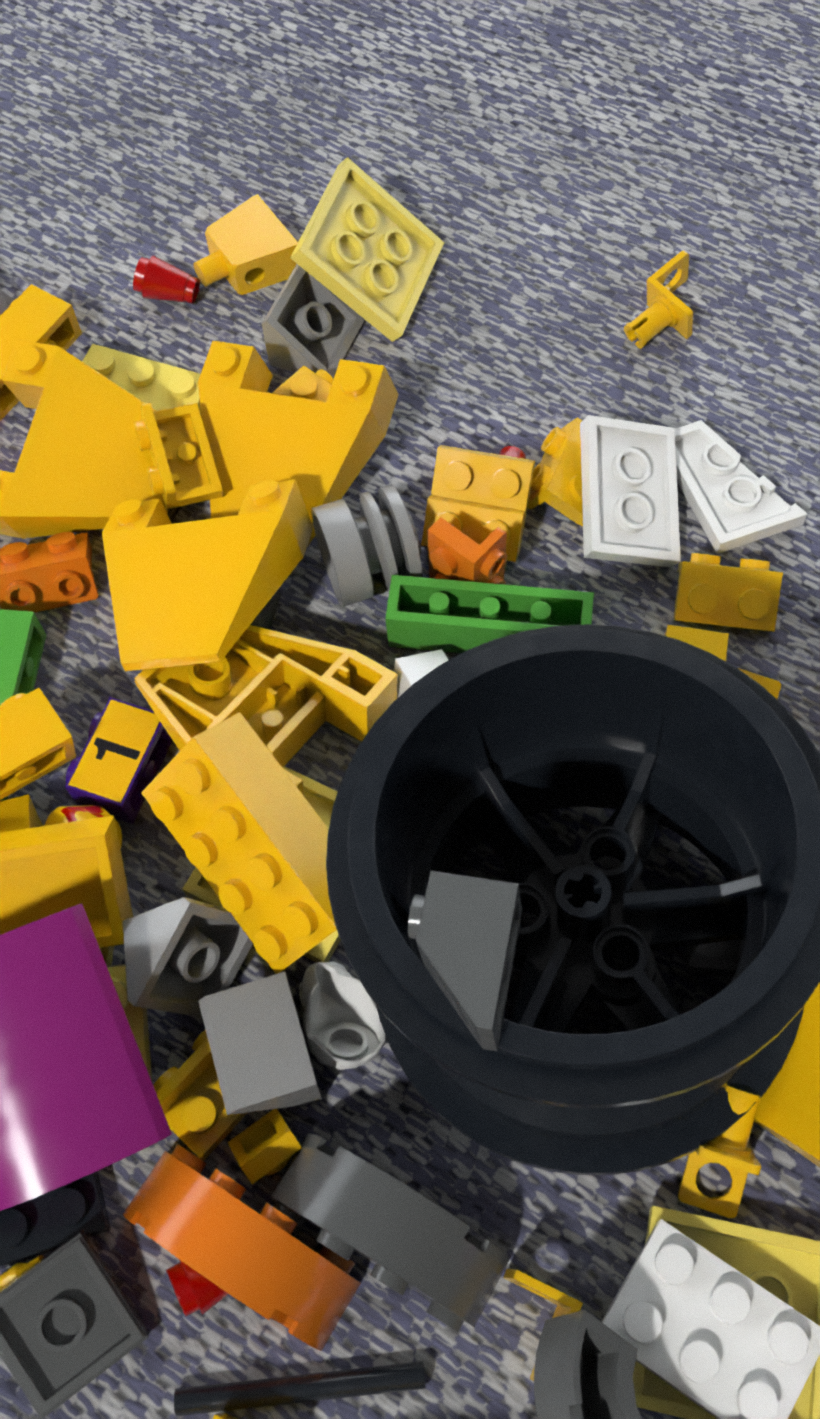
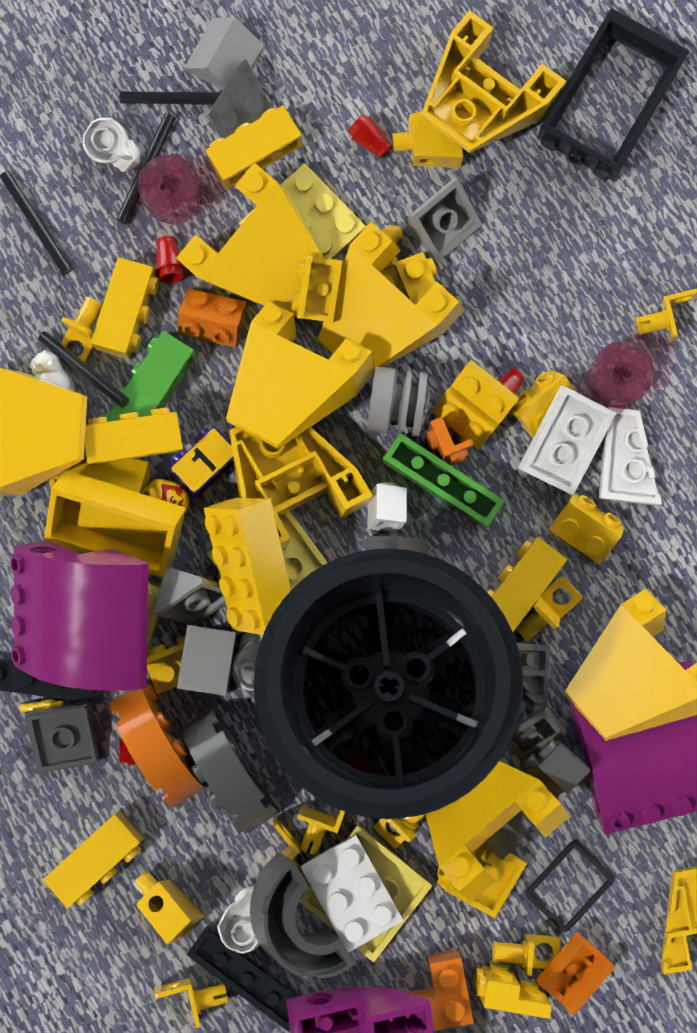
camera: 25 degrees right, 20 degrees up
(264, 1146) = (189, 705): yellow plate -> none
(282, 179) = (477, 103): none -> yellow wedge
(299, 1388) = (158, 818): black bar -> none
(368, 250) = (503, 186): light yellow plate -> none
(447, 63) = (642, 41): none -> black door
(469, 945) = (302, 715): dark grey slope -> none
(586, 1245) = (317, 826): none -> yellow bracket
(650, 383) = (635, 368): none -> clear pink brick

